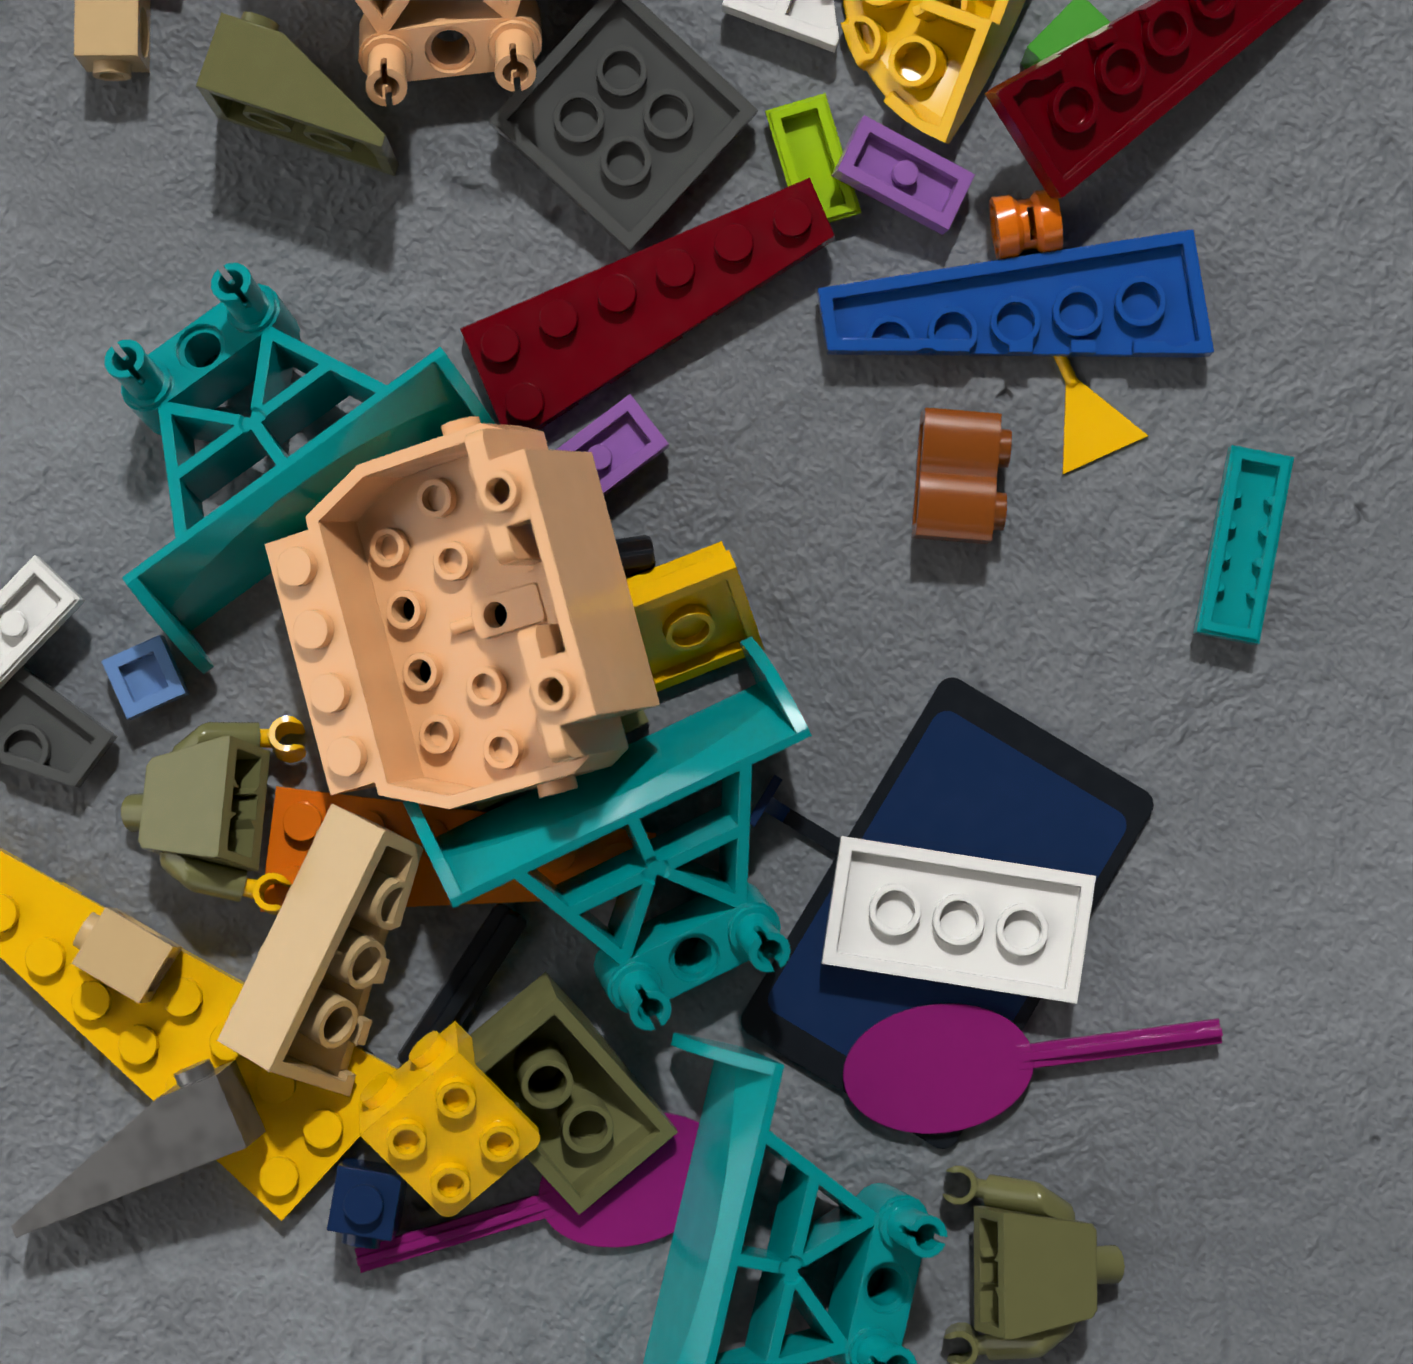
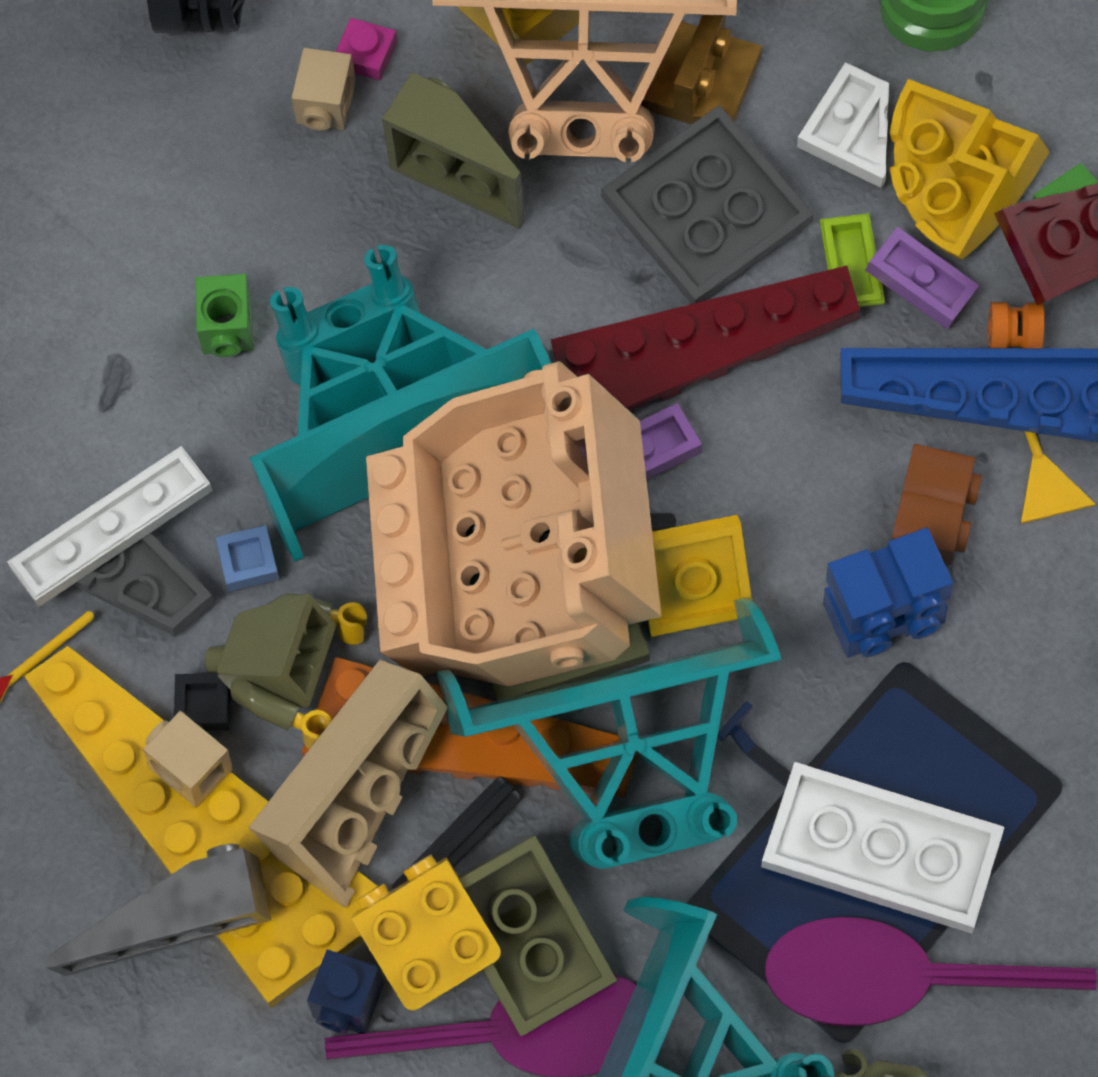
camera: 15 degrees right, 20 degrees down
(35, 339) = (219, 297): none -> bright green brick
(126, 871) = (203, 700): none -> black plate
(921, 610) = (887, 594): none -> blue brick

